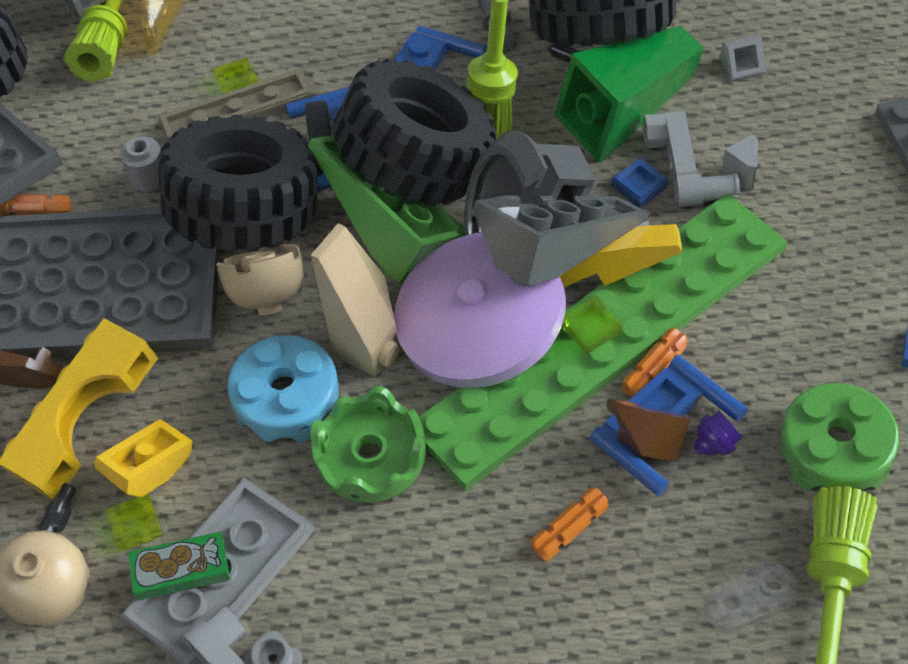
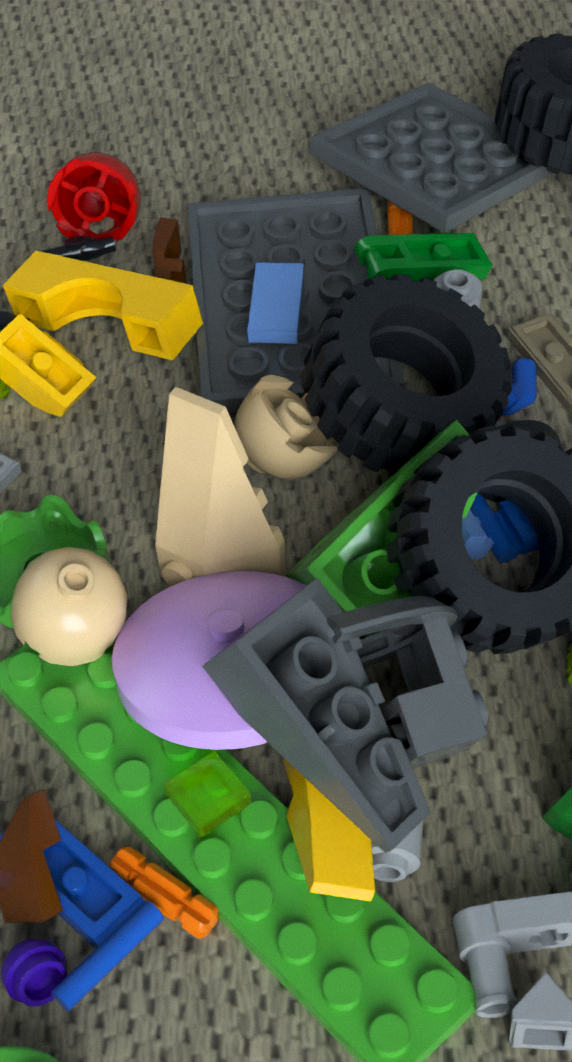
camera: 85 degrees right, 5 degrees down
(85, 183) = (422, 255): none -> green plate
(113, 279) = (276, 303): none -> medium blue tile
(286, 411) = (115, 501): medium azure plate -> none
(431, 402) = (69, 606): none -> tan cylinder
(639, 182) = (501, 869): blue tile -> none

